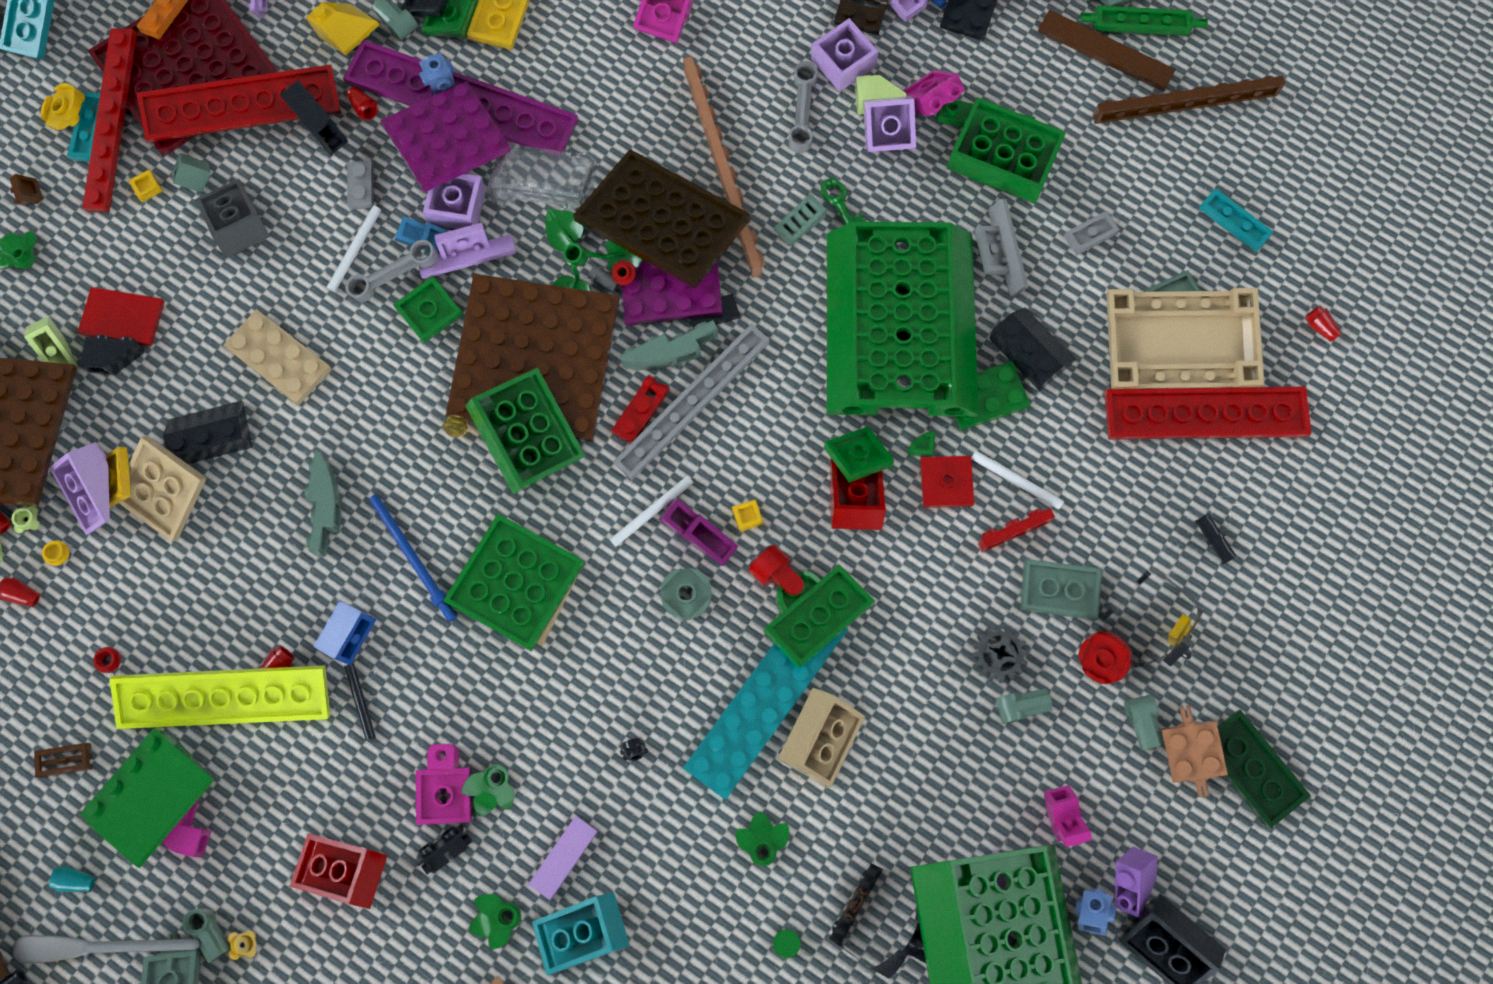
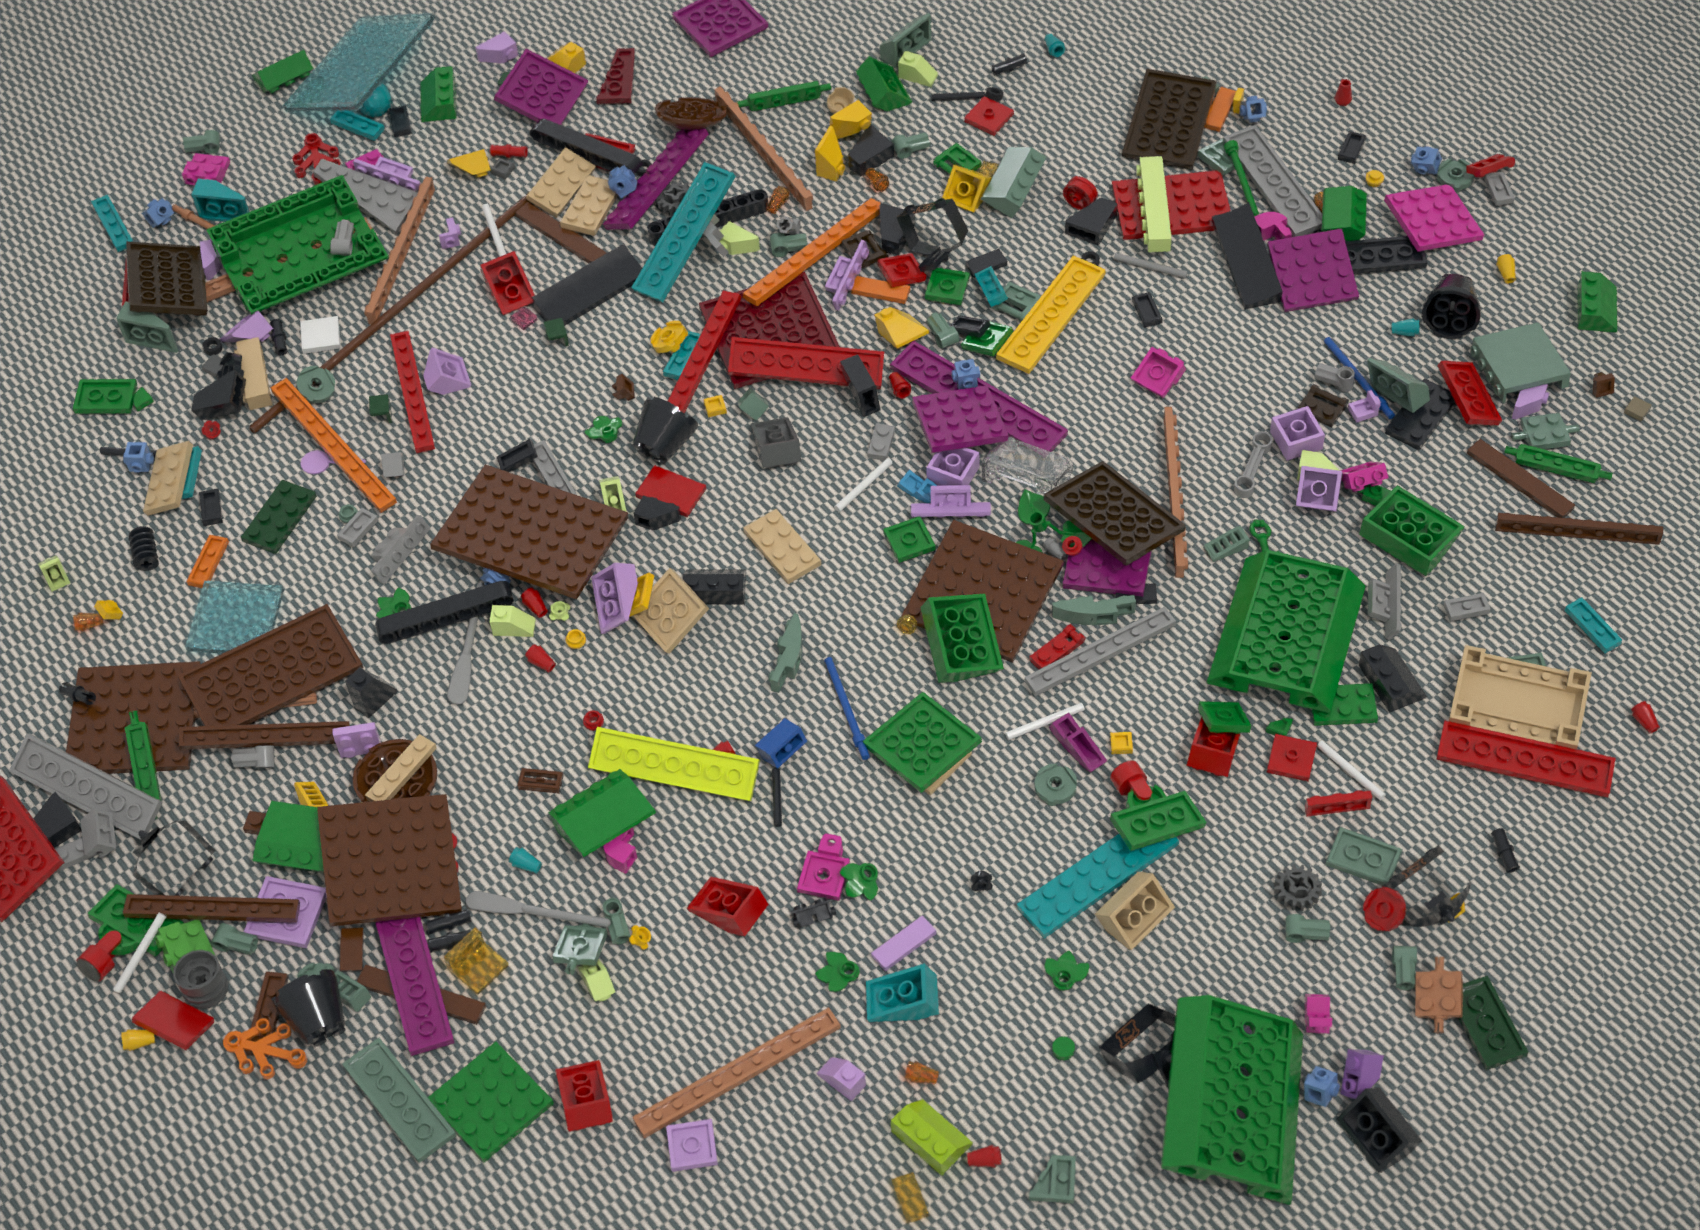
camera: 20 degrees right, 20 degrees down
(84, 242) = (662, 430): none -> black cone
(391, 271) = (889, 505): light grey piece -> none

